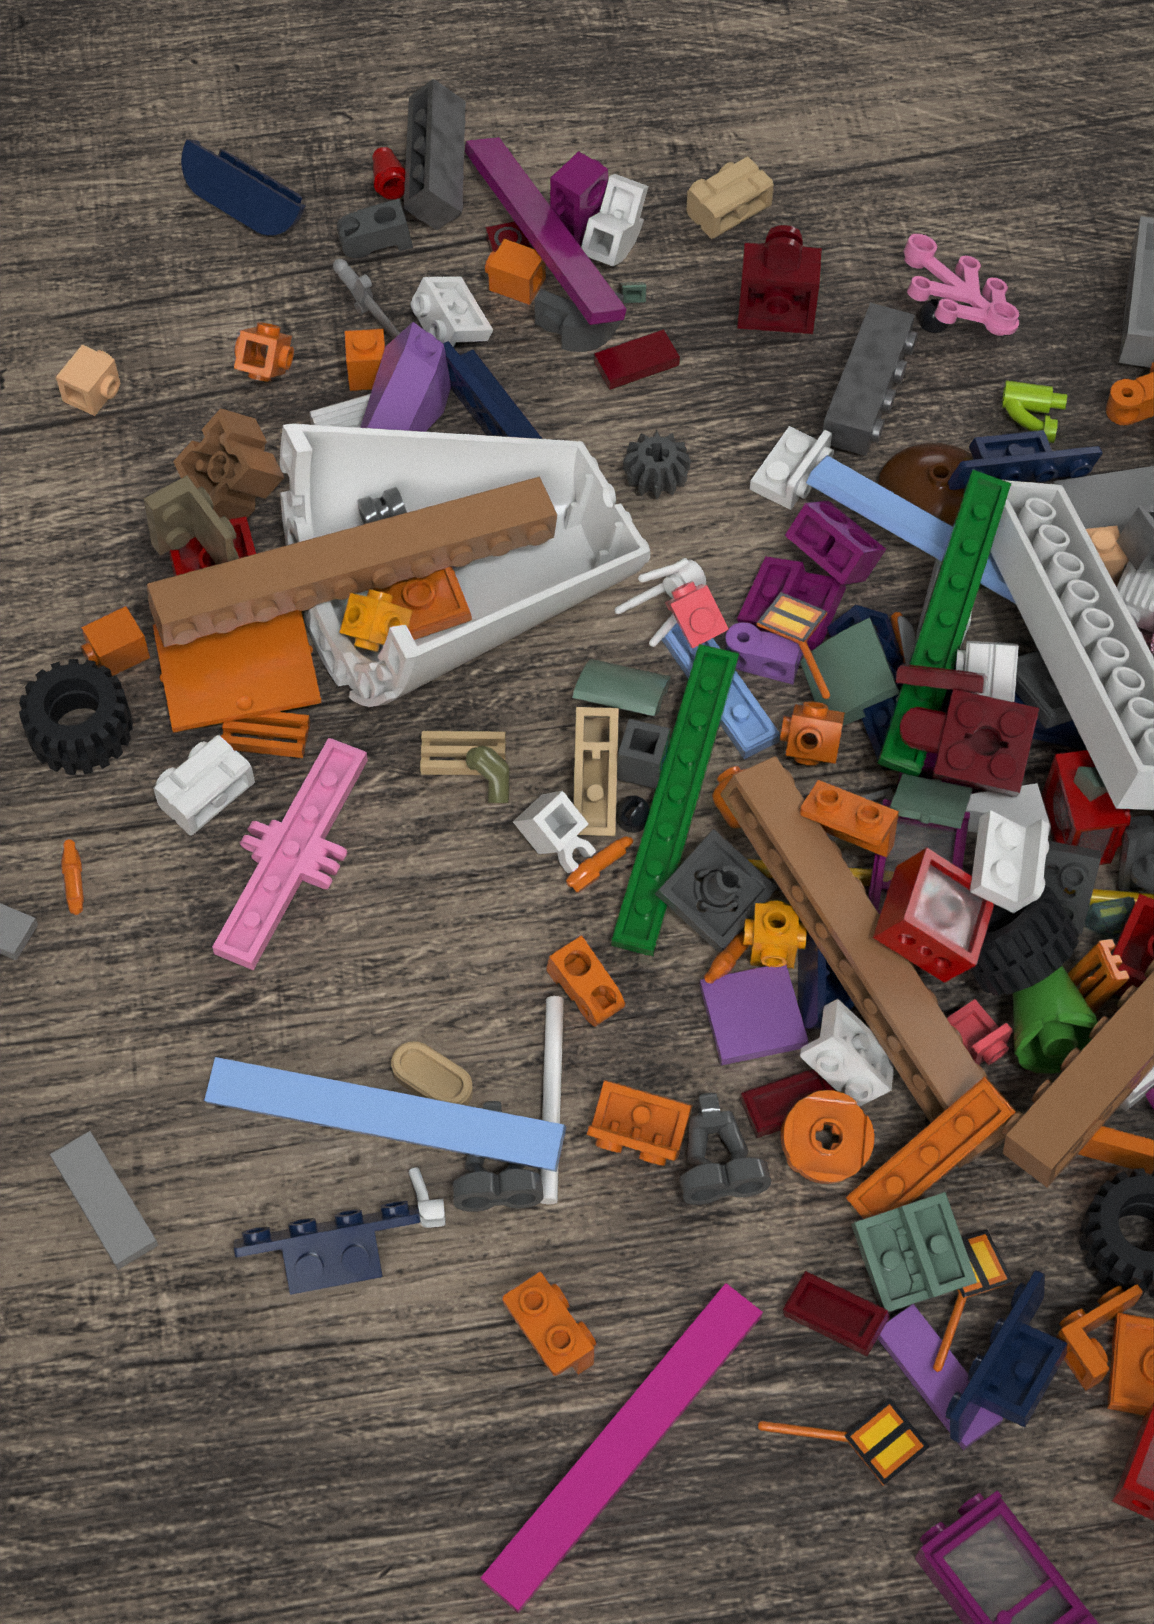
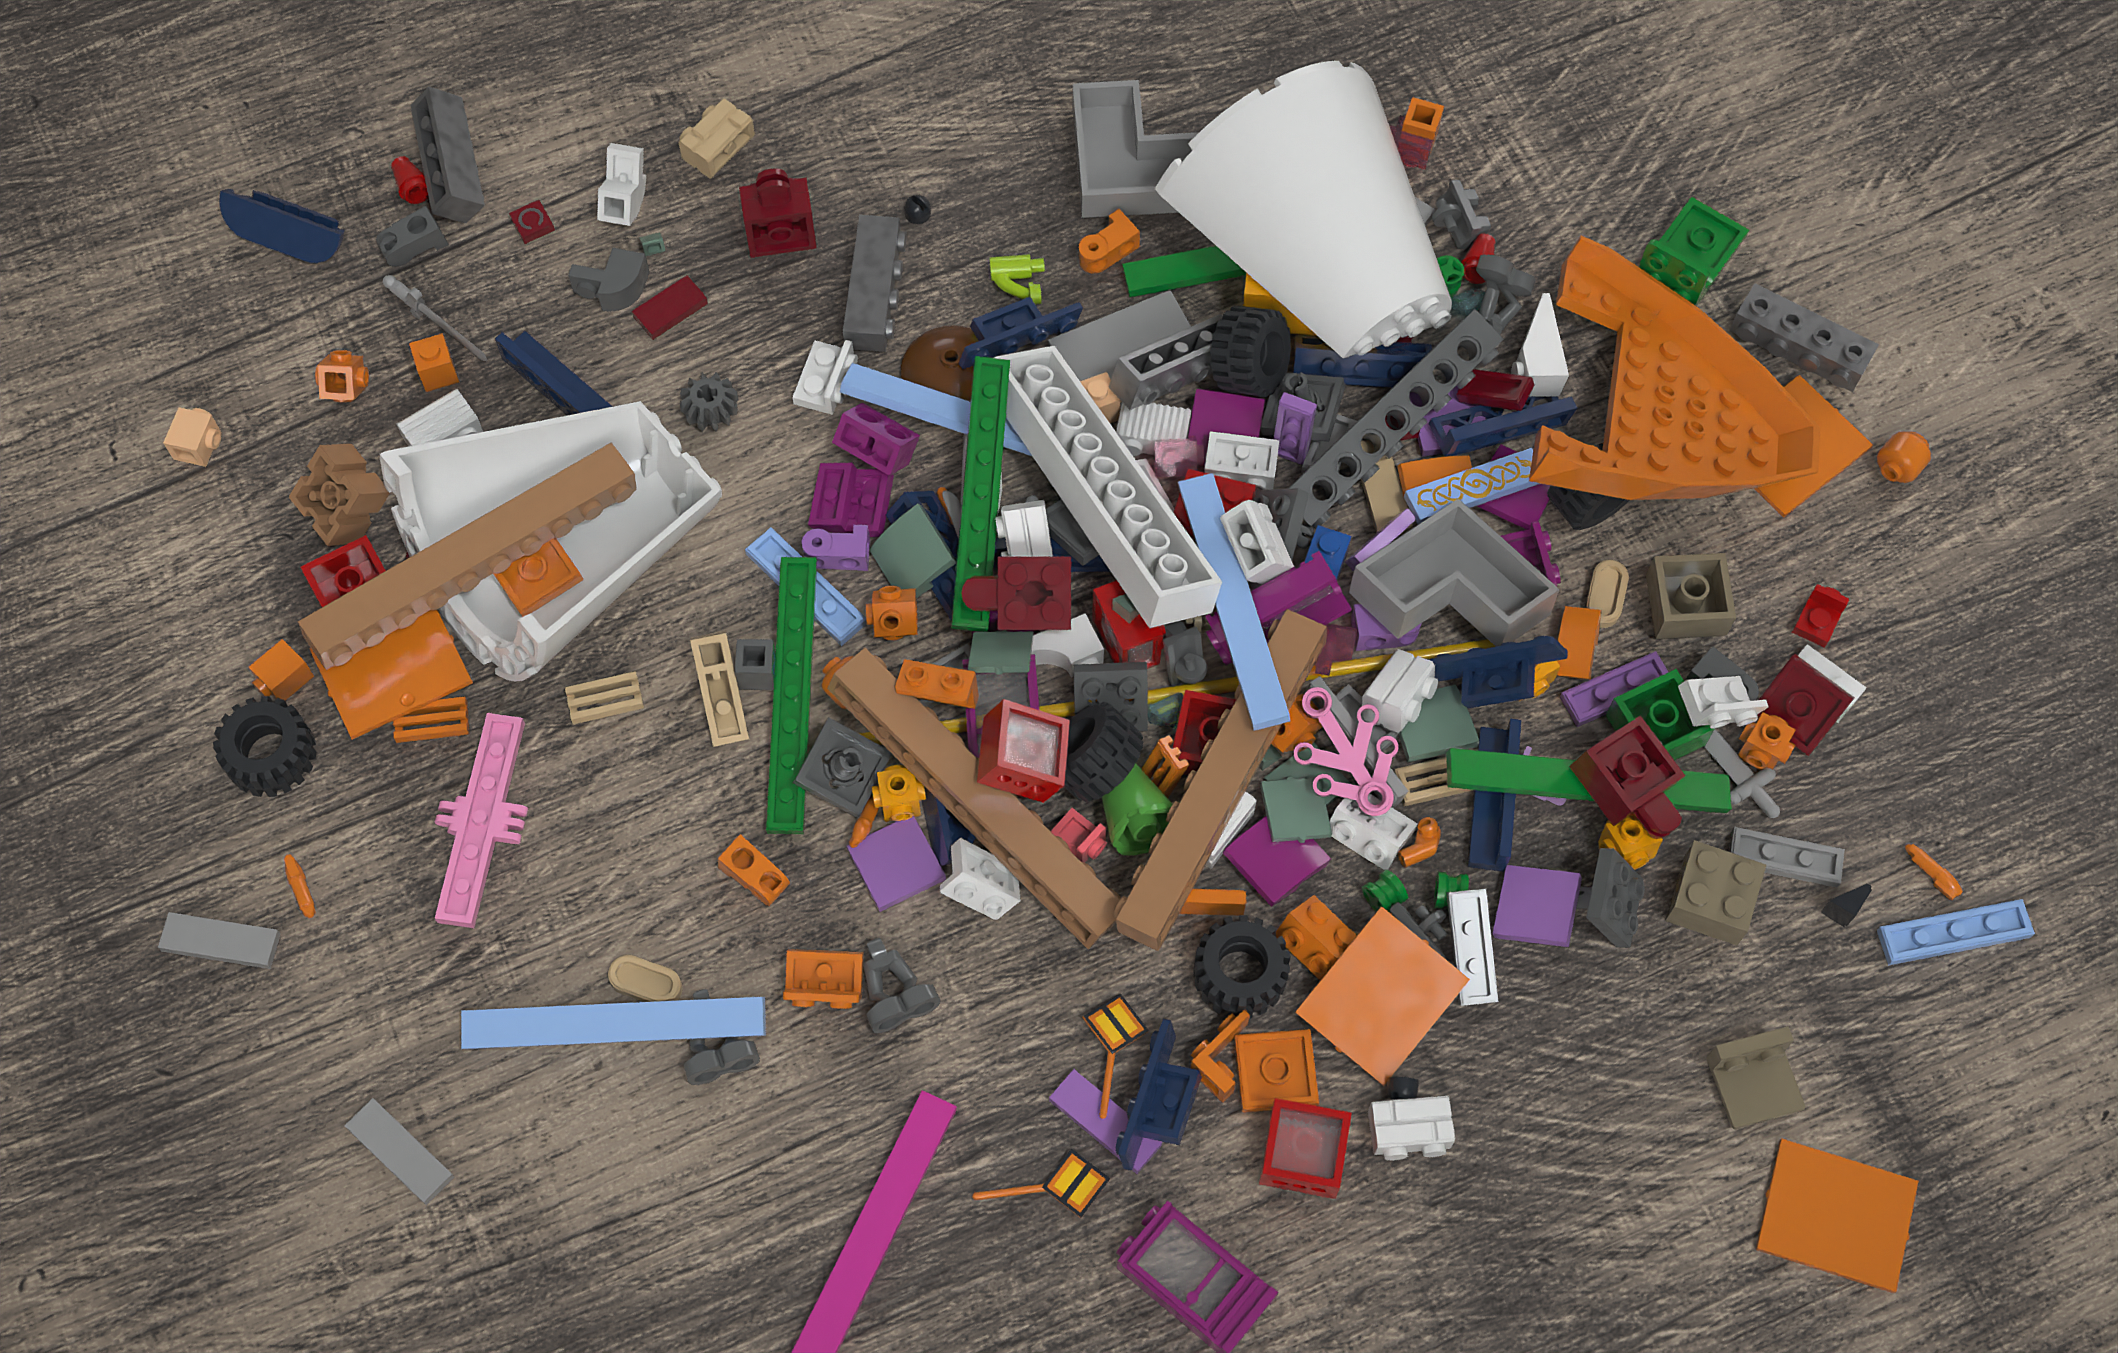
camera: 15 degrees left, 5 degrees up
(187, 512) = (311, 549): dark tan bracket -> none
(203, 784) = (390, 779): white brick -> none
(332, 1250) = (596, 1146): dark blue bracket -> none
(370, 617) = (501, 603): light orange brick -> none
(381, 508) = (483, 502): dark grey wheel -> none
(409, 384) = (477, 384): medium lavender wedge -> none
(430, 1211) = (672, 1092): white hand -> none
(449, 311) = (496, 301): white bracket -> none
(494, 769) = (633, 707): olive arm -> none
(515, 271) = (545, 249): orange brick -> none
(545, 231) = (561, 207): magenta tile -> none
(549, 1326) = (788, 1162): orange bracket -> none
(552, 1083) = (745, 961): white axle -> none
(553, 827) = (696, 745): white brick -> none
(578, 192) = (583, 169): magenta brick -> none
(590, 869) = (734, 774): orange piece -> none
(621, 687) = (724, 610): sand green slope -> none
(639, 816) = (764, 720): black hinge -> none
(676, 576) = (753, 504): white plant -> none
(696, 613) = (772, 530): coral bracket -> none
(771, 1103) = (941, 930): dark red tile -> none
(796, 622) = (857, 518): piece -> none
(836, 1313) = (1014, 1092): dark red tile -> none
(846, 1119) = (990, 935): orange plate -> none
(914, 1252) = (1065, 1028): sand green slope -> none
(933, 1151) = (1062, 947): orange tile -> none
(941, 678) = (987, 547): dark red tile -> none
(996, 315) = (970, 199): bright pink plant -> none
(1009, 861) = (1073, 691): white bracket -> none

